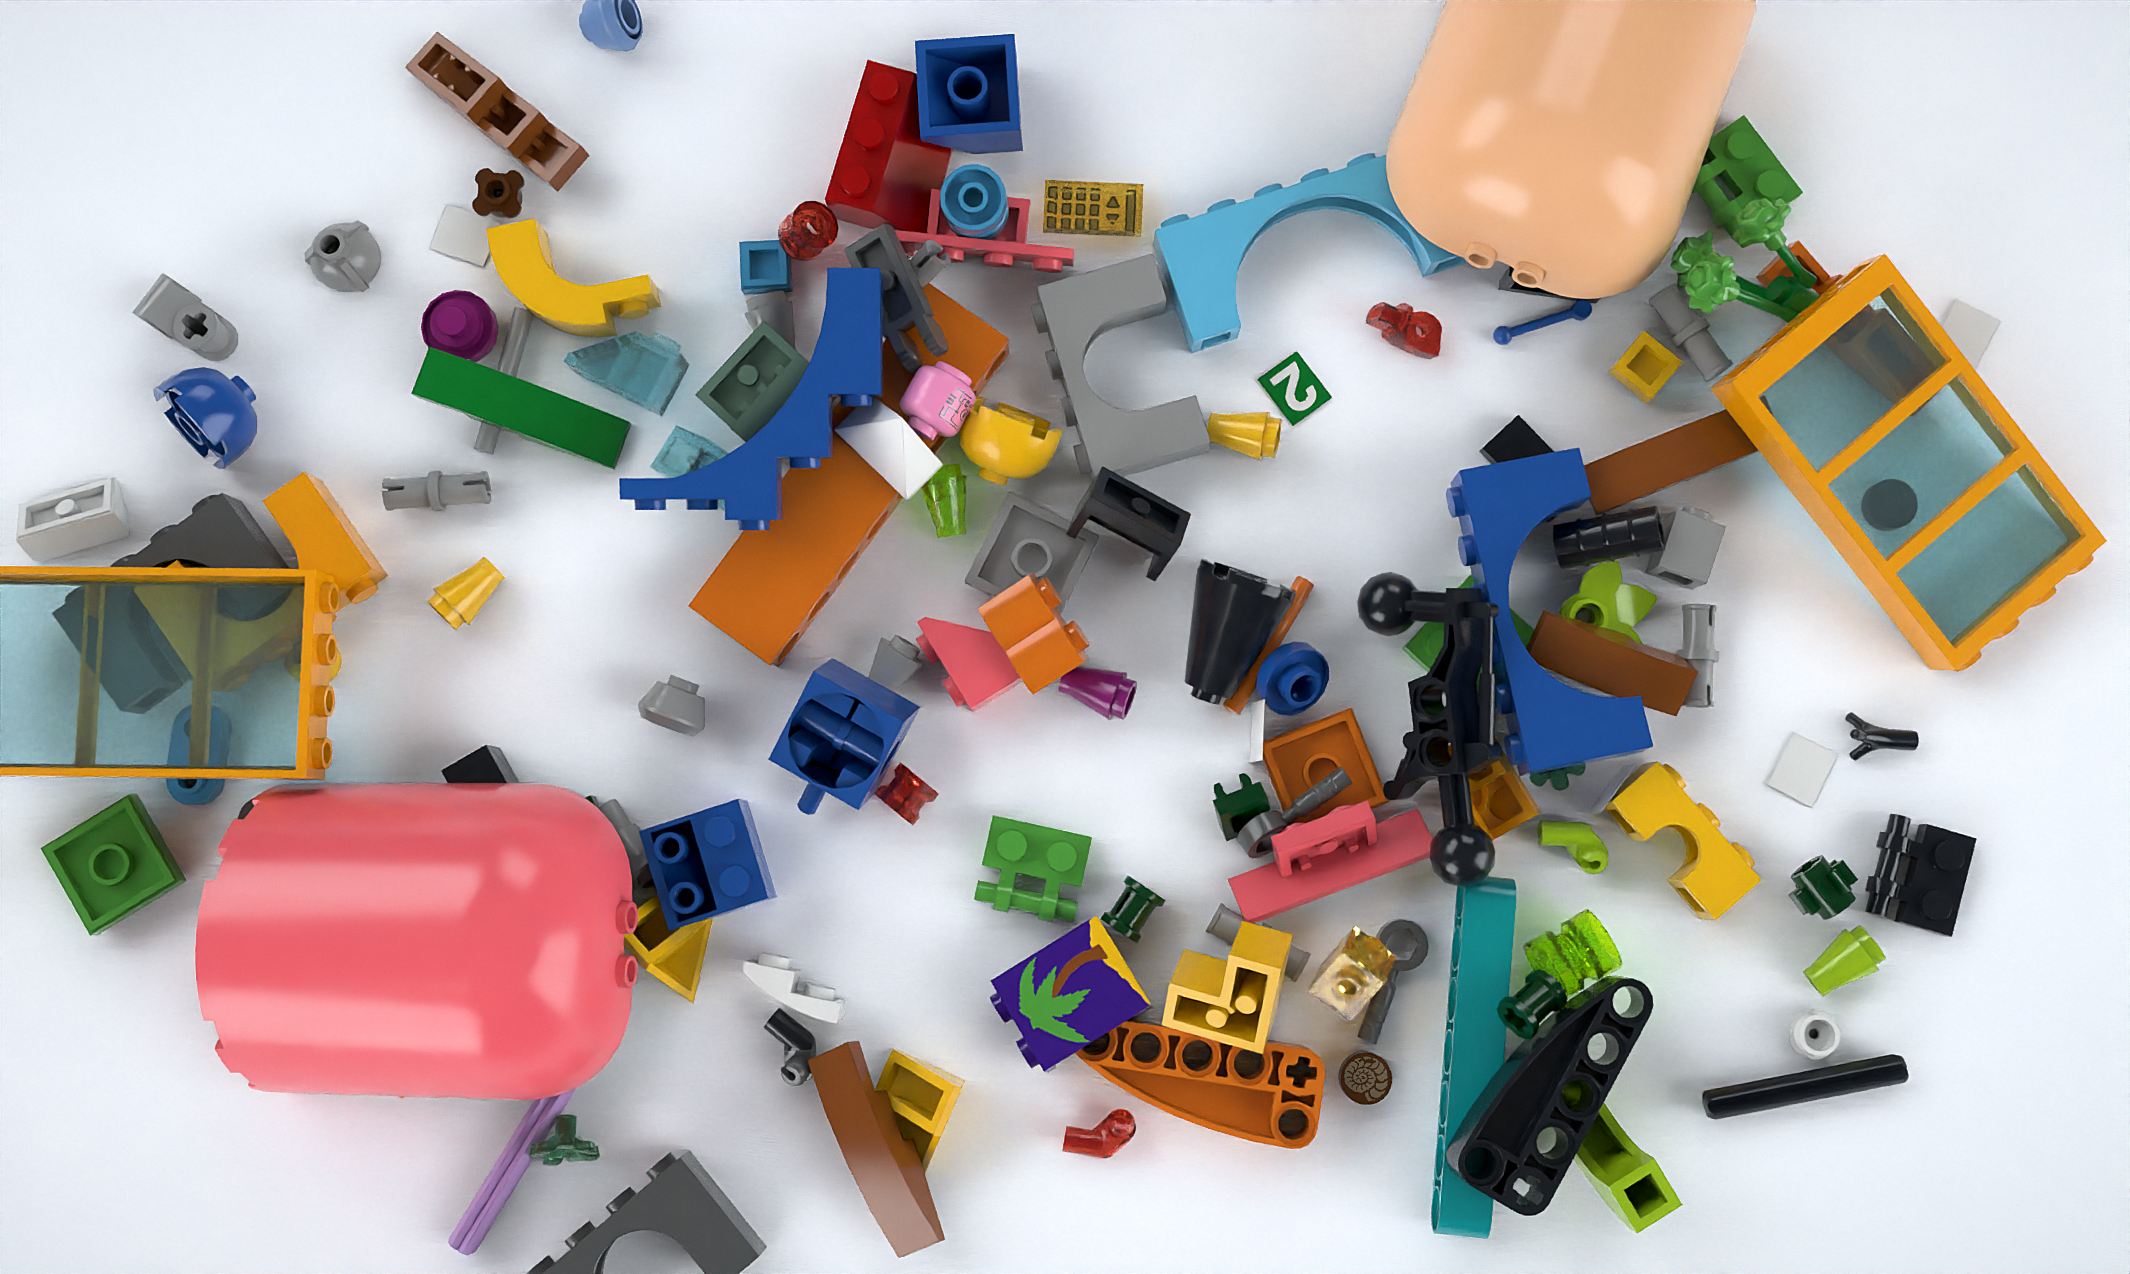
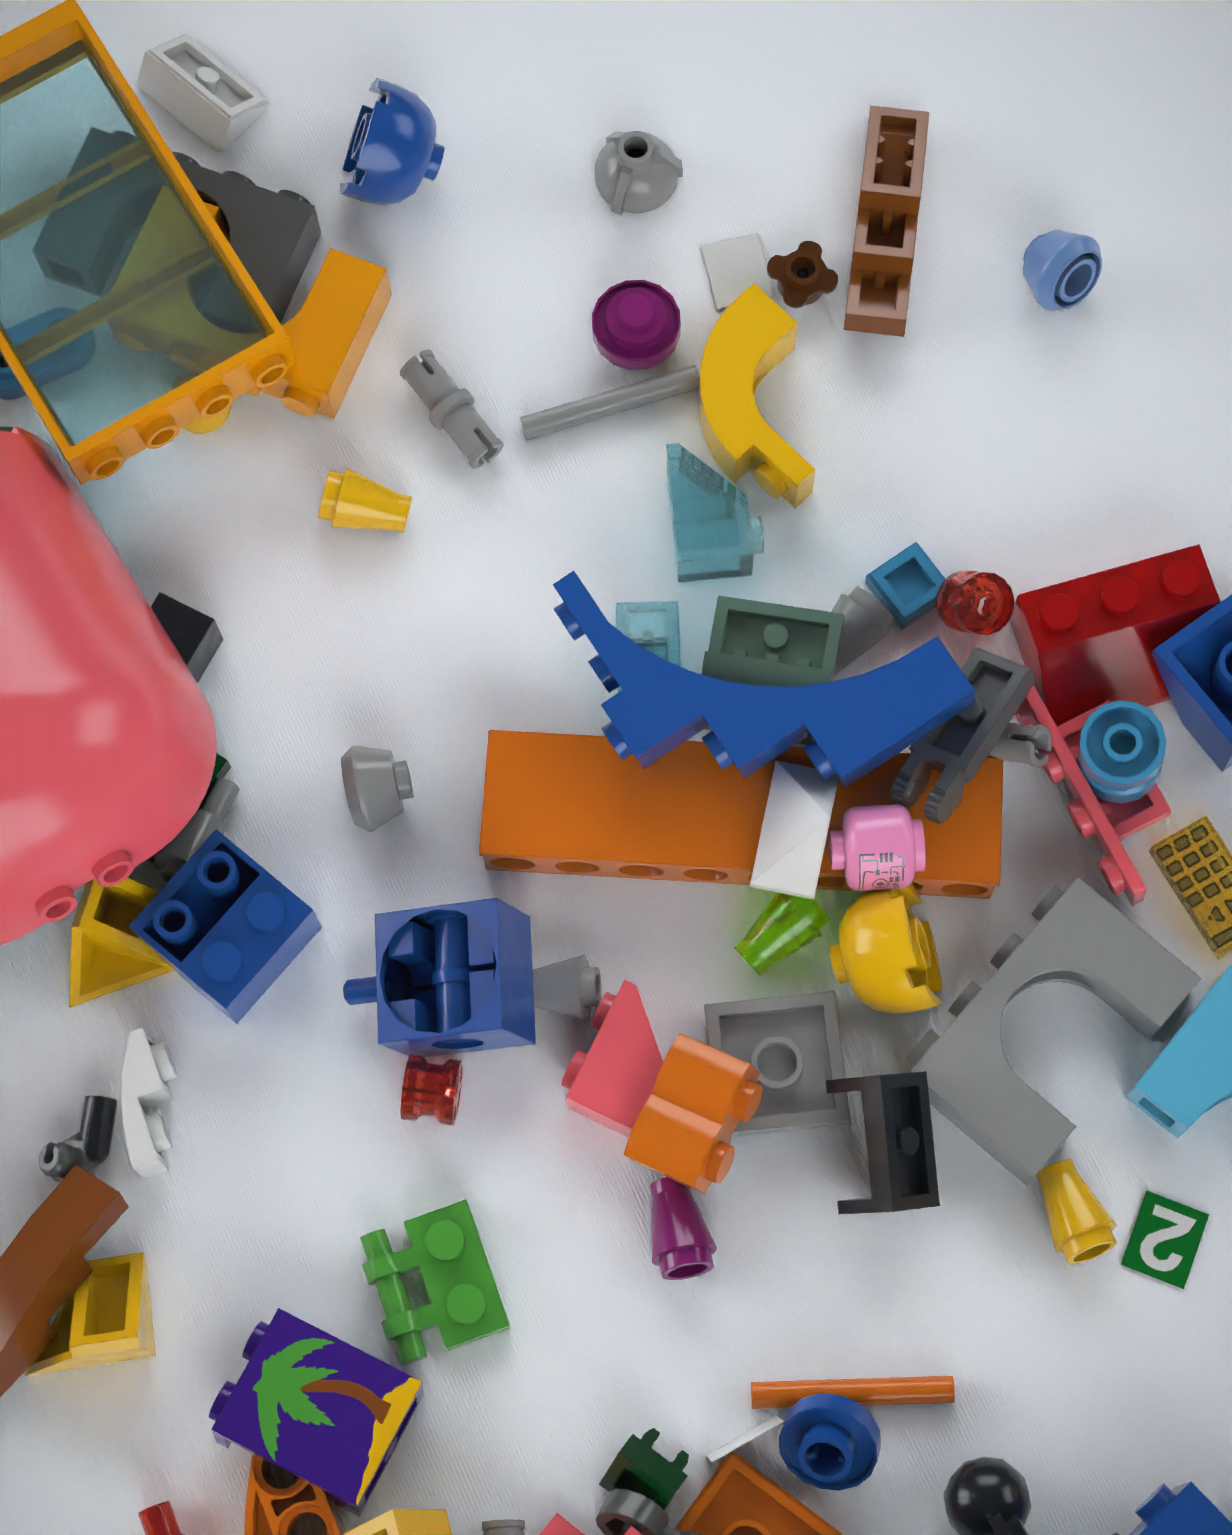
camera: 60 degrees right, 10 degrees down
(186, 319) = (471, 67): light grey piece -> none
(521, 408) = (591, 437): green slope -> none
(1132, 909) = (455, 1422): dark green bush -> none
(1230, 627) = (841, 1331): black cone -> none

